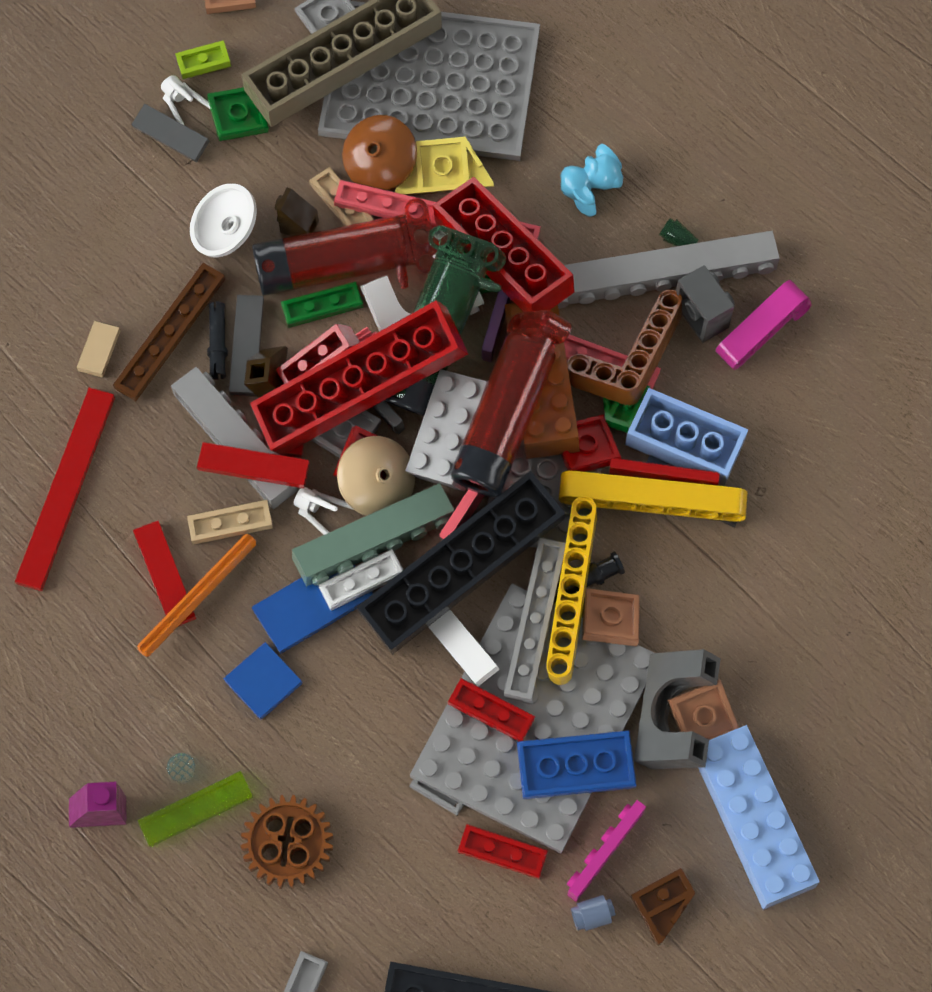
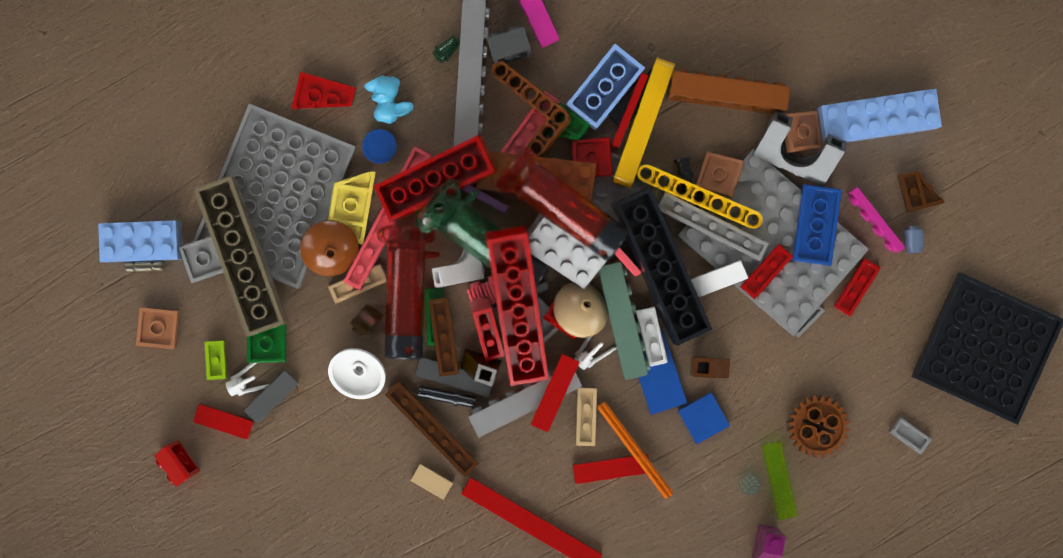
camera: 80 degrees left, 20 degrees up
(61, 42) = (176, 463): none -> red slope
(125, 87) = (223, 421): none -> red tile
(297, 314) = (443, 336): none -> reddish brown plate
(336, 667) = (709, 367): none -> reddish brown slope
(528, 184) = (379, 146): none -> blue piece
(578, 104) = (321, 93): none -> red wing
(726, 594) = (727, 92): none -> dark orange brick

